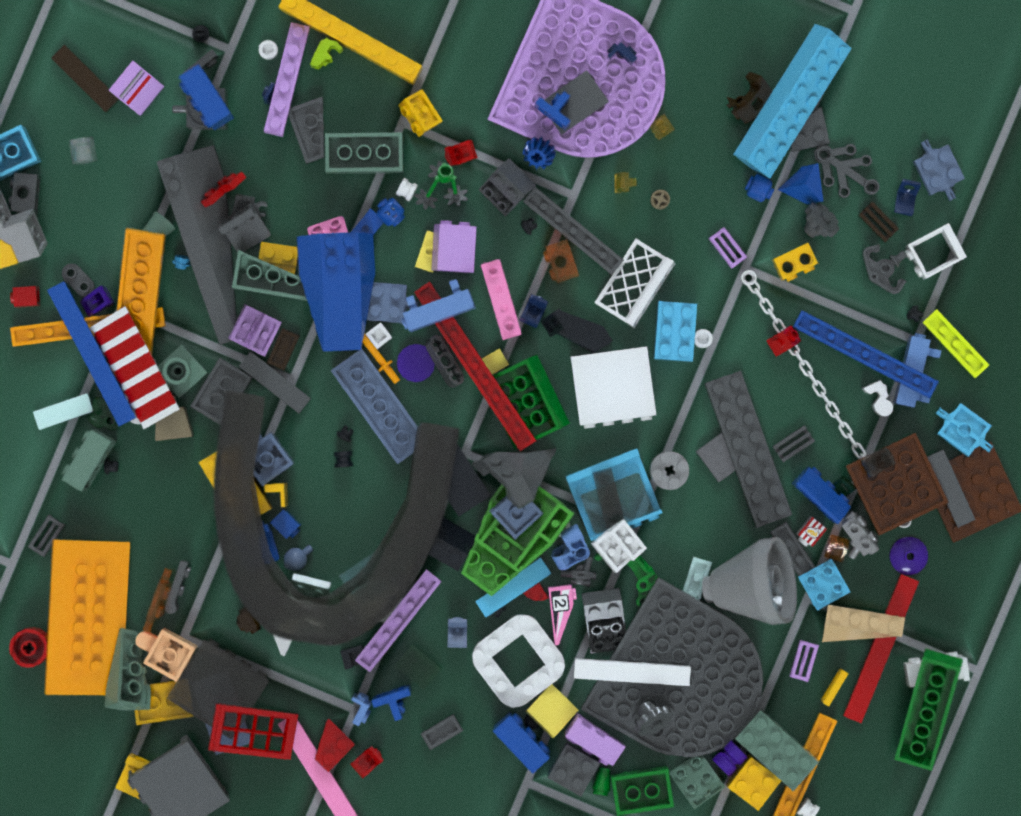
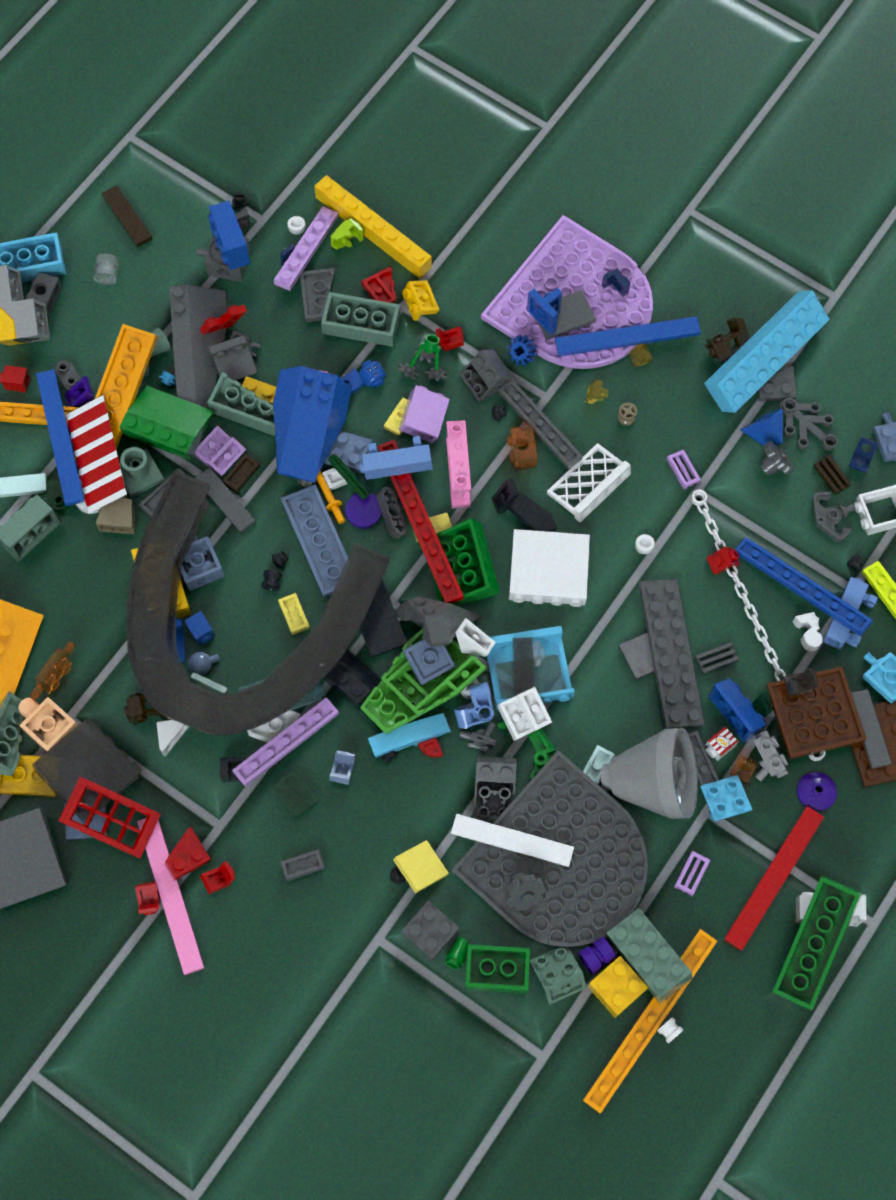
camera: 10 degrees right, 20 degrees down
(110, 466) = (46, 542): black piece -> none
(136, 88) = (170, 231): lavender slope -> none
(178, 587) = (76, 665): dark grey plate -> none
(196, 315) = (166, 422): none -> green slope
(279, 487) = (200, 590): yellow panel -> none
(307, 794) = (147, 898): none -> red bracket
(363, 712) = (225, 824): medium blue bracket -> none
(373, 488) = (293, 614): none -> light yellow plate
(376, 108) = (380, 286): none -> red wing
(392, 697) = (261, 816): blue bracket -> none
(394, 334) = (349, 476): none -> dark green axle
(406, 189) = (392, 358): white wheel -> none
(496, 678) = (411, 834): white plate -> none
(522, 741) = (383, 888): blue brick -> none
(533, 310) = (487, 484): dark blue bracket -> none
(556, 485) = (473, 640): none -> white slope
(561, 604) = (453, 764): slope -> none
(594, 740) = (458, 905): lavender wedge -> none
(619, 479) = (538, 653): none -> clear plate
(645, 113) = (627, 336): none -> blue tile
(675, 331) = (619, 529): medium azure brick -> none
(680, 469) = (589, 644): light grey brick -> none
(759, 188) = (723, 421): blue head -> none
(793, 258) = (744, 488): yellow brick -> none
(834, 687) = (719, 905): yellow tile -> none
(856, 624) = (757, 844): tan wedge -> none

